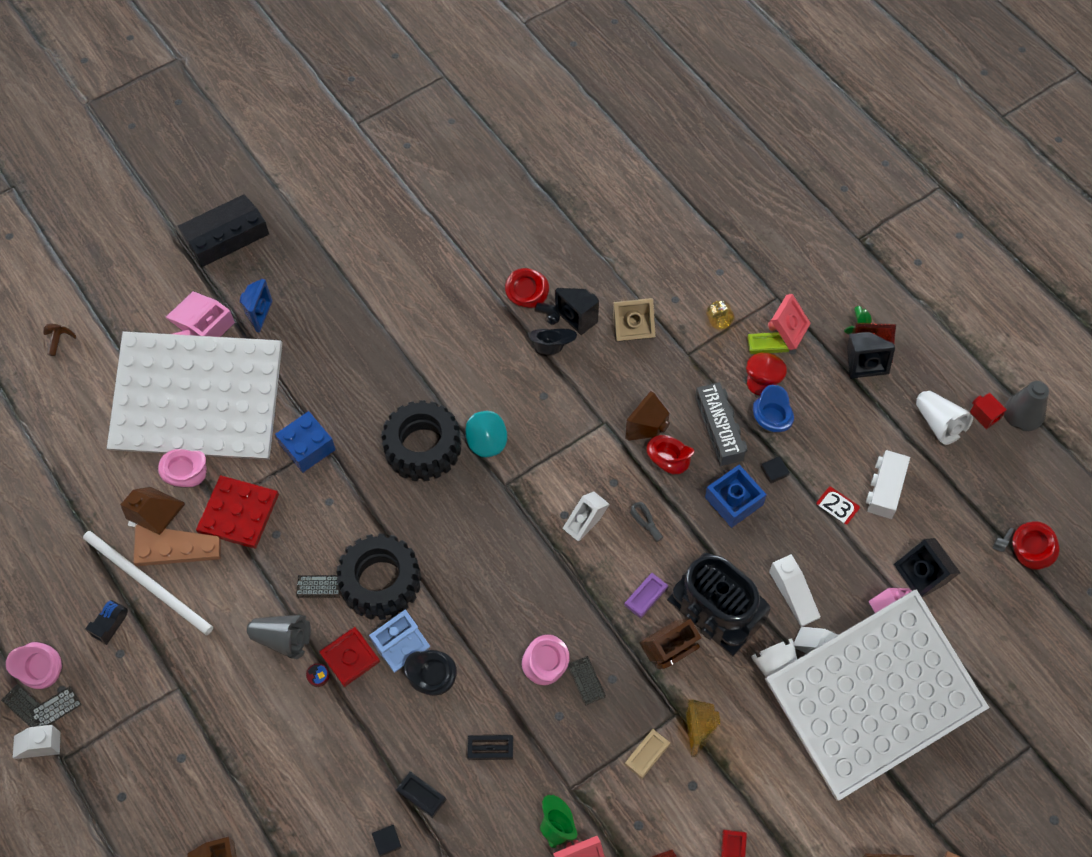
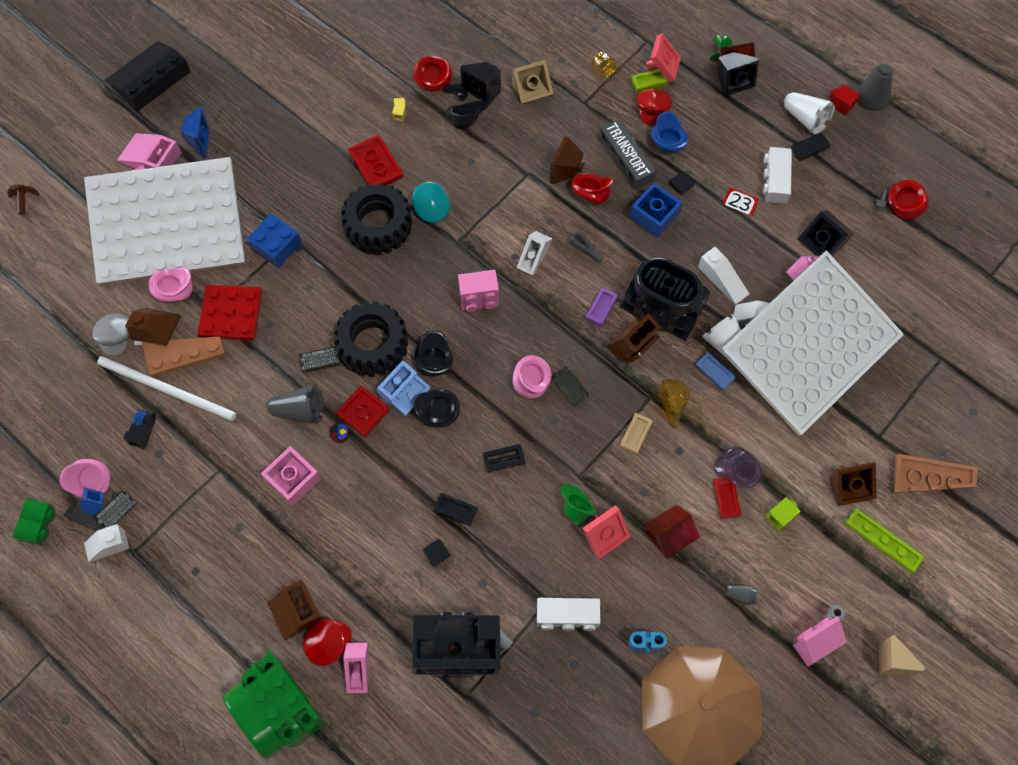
camera: 15 degrees left, 5 degrees up
(33, 692) = (91, 501): none -> blue brick
(106, 509) = (112, 334): none -> light grey piece
(250, 714) = (291, 476): none -> bright pink brick
(438, 375) = (375, 161): none -> red plate
(443, 609) = (433, 354): none -> black piece
(480, 321) = (399, 109): none -> light yellow piece
(510, 547) = (478, 290): none -> bright pink brick
(756, 822) = (739, 467): none -> clear purple piece
(757, 700) = (715, 371): none -> medium blue tile
(935, 457) = (810, 146): none -> black tile

